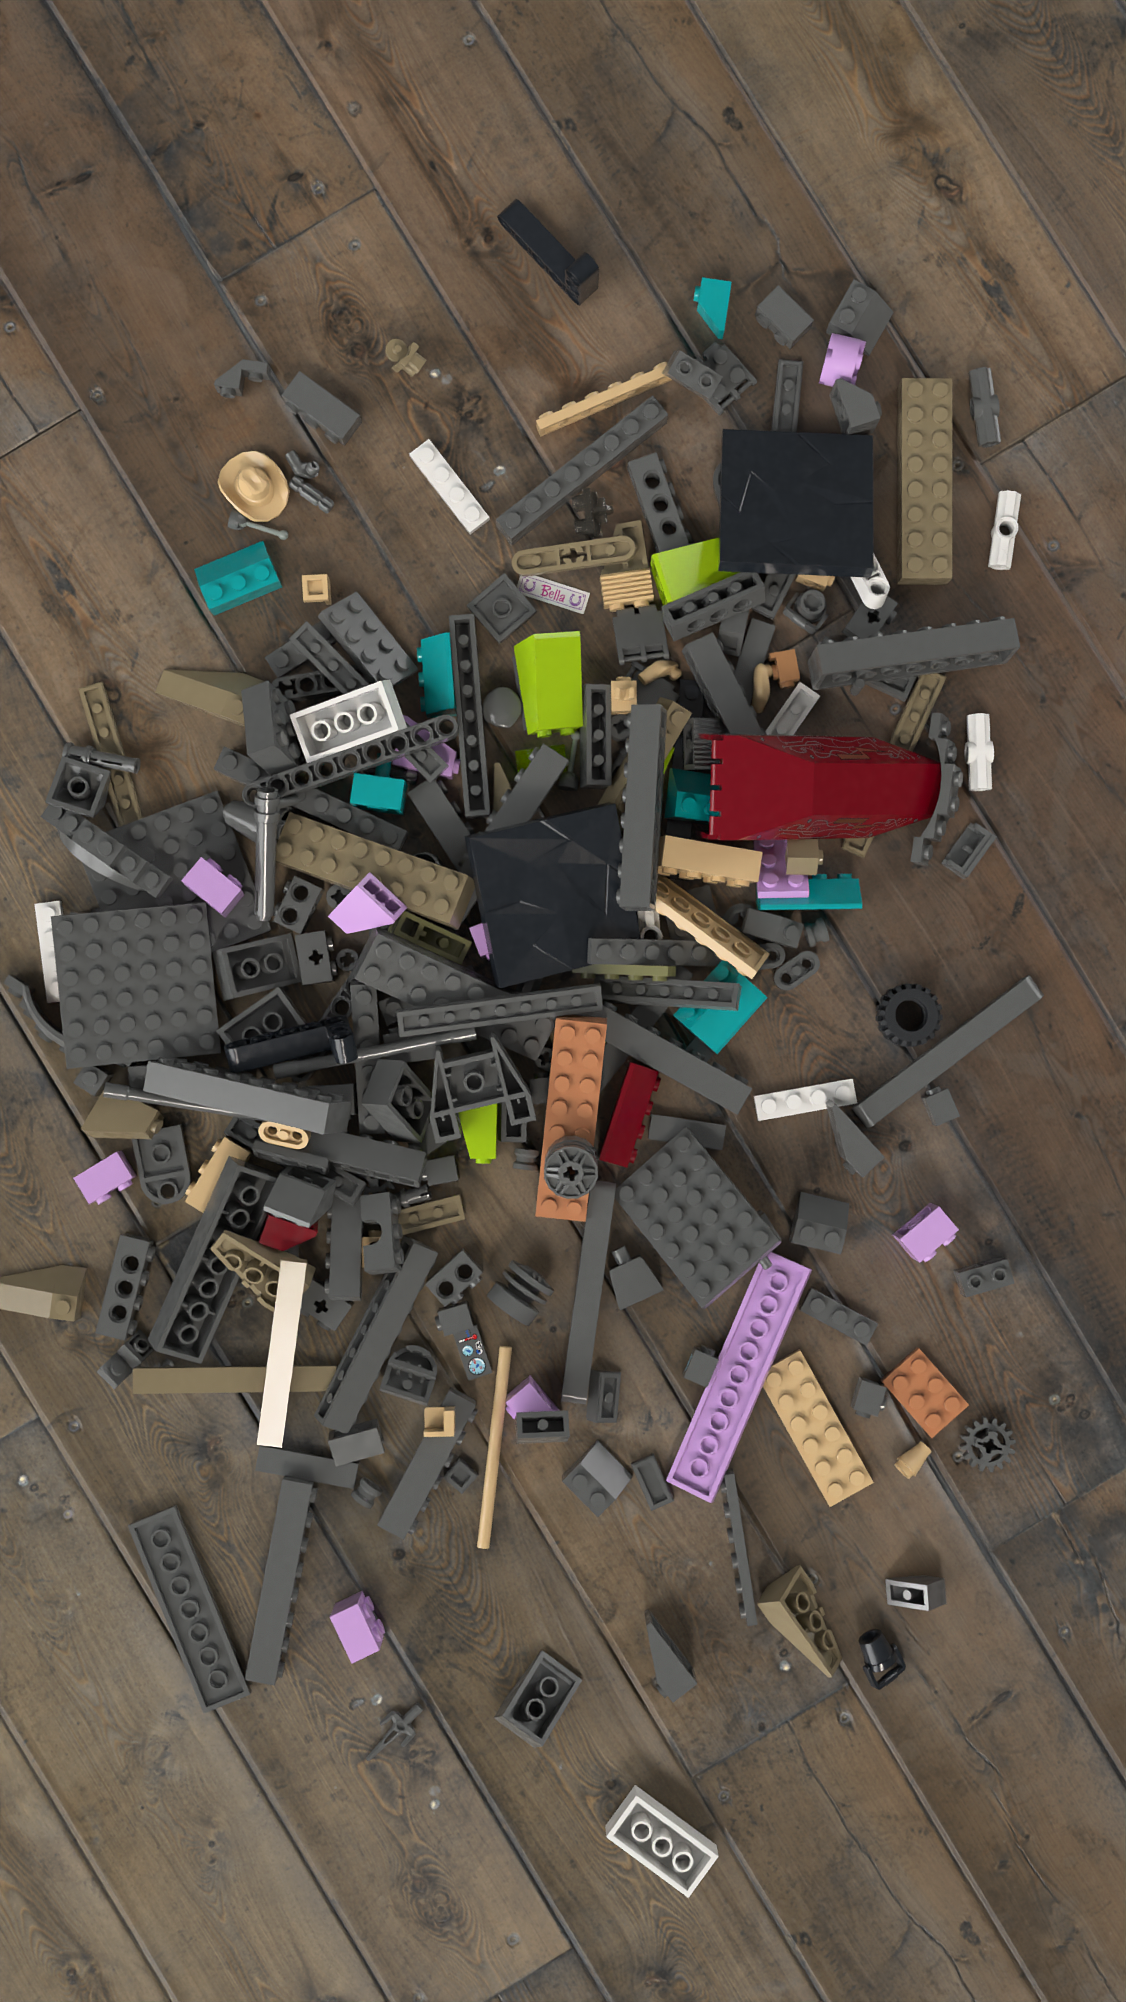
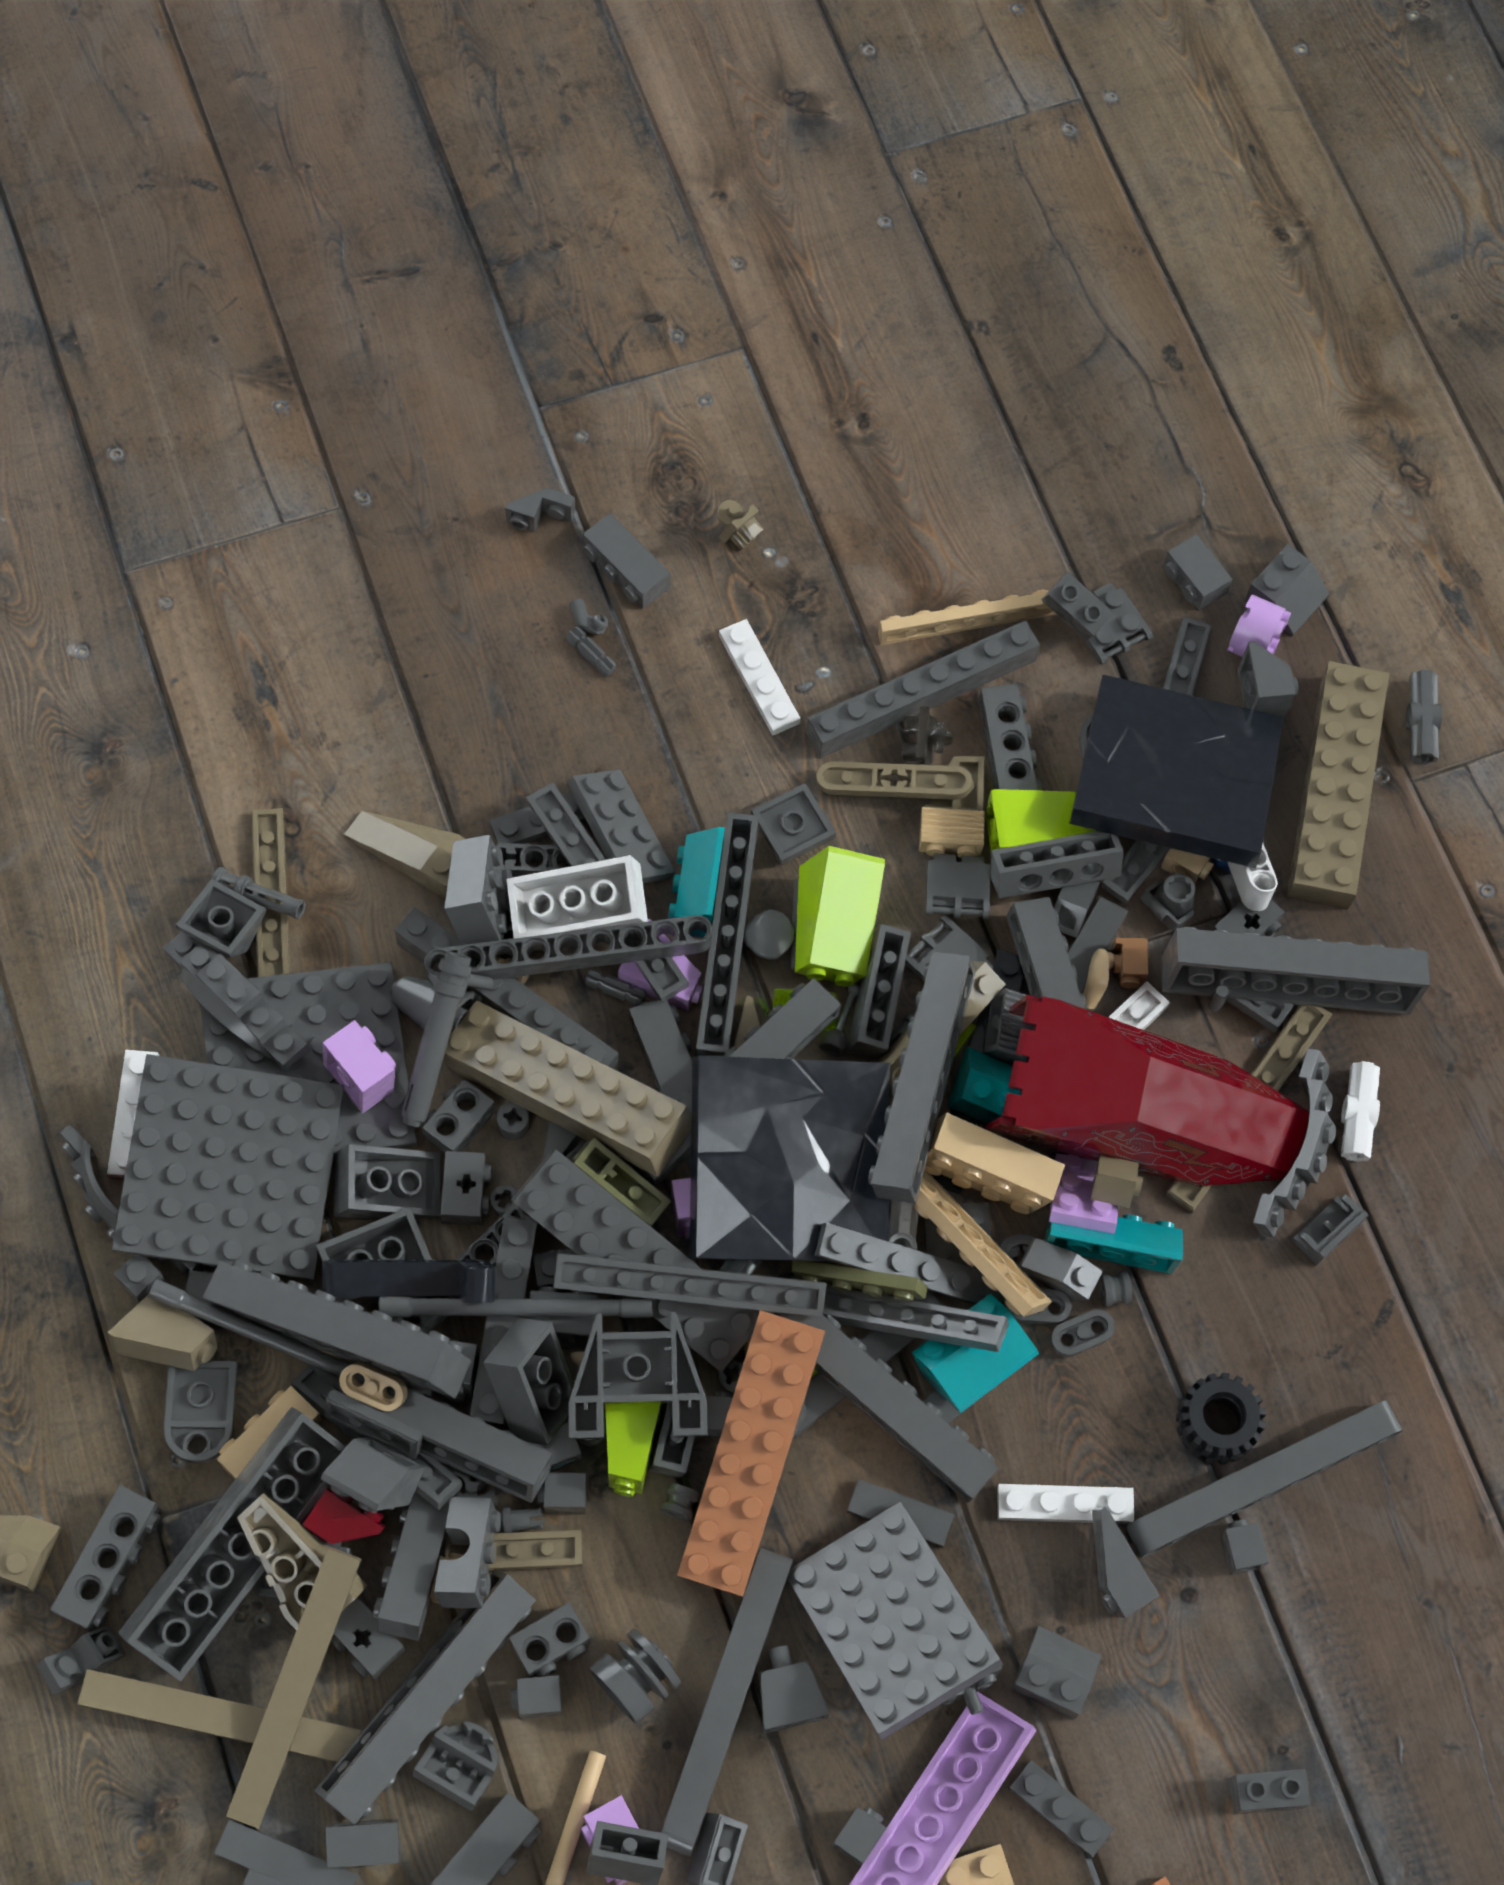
camera: 10 degrees right, 20 degrees down
(105, 1177) = (120, 1410): lavender brick -> none
(237, 578) = (479, 727): teal slope -> none
(239, 522) = (496, 662): hinge -> none
(254, 486) = (526, 629): tan hat -> none
(316, 588) = (572, 752): tan panel -> none
(367, 907) = (547, 1121): lavender slope -> none
(379, 791) = (595, 1000): teal brick -> none
(439, 1421) = (486, 1829): tan panel -> none
(472, 1353) = (550, 1751): tile -> none
(553, 593) = (861, 821): white sticker -> none
(575, 277) = (955, 477): black beam -> none
(576, 1153) = (754, 1491): dark grey wheel -> none
(619, 733) = (906, 996): dark grey wheel -> none
(623, 695) = (922, 943): tan brick -> none
(628, 1114) = (827, 1470): dark red slope -> none
(660, 669) = (974, 930): tan arm -> none
(713, 303) = (1115, 540): teal slope -> none
(926, 1233) = (1195, 1711): lavender brick -> none
(1006, 515) = (1425, 873): white piece -> none

